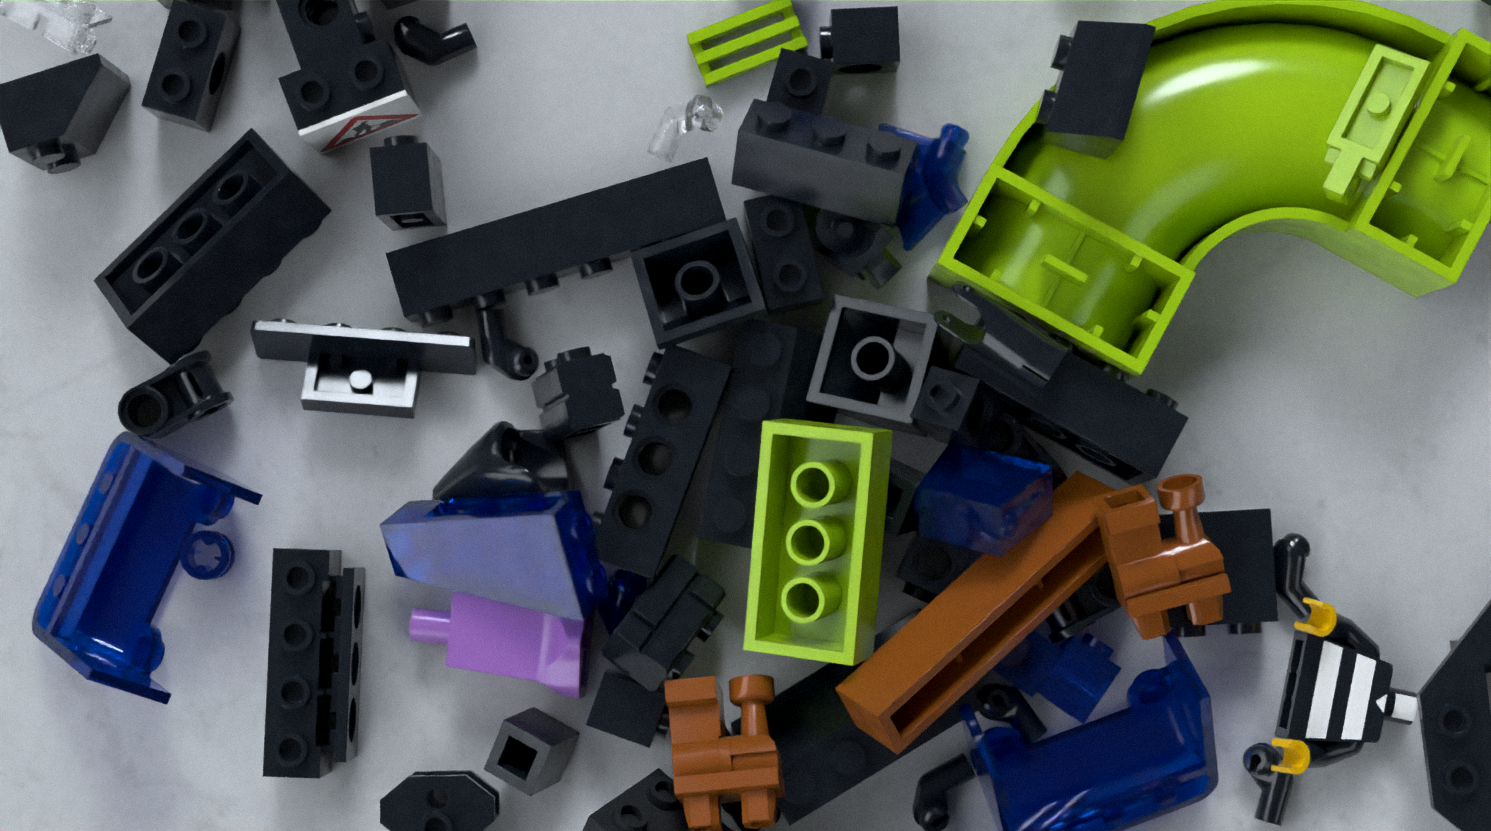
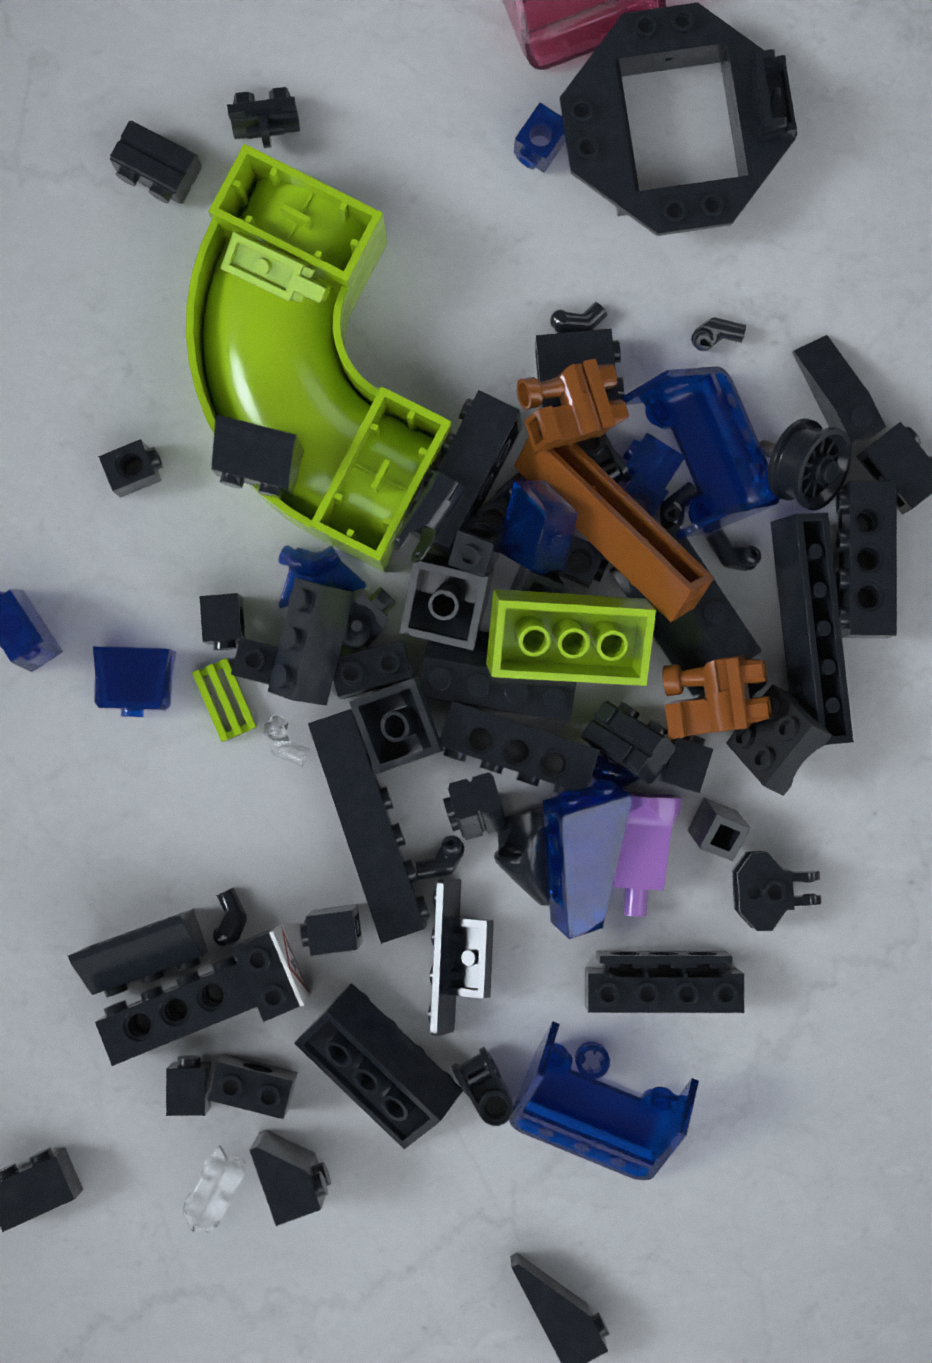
camera: 90 degrees left, 0 degrees up
(1335, 693) = (657, 290): torso -> none

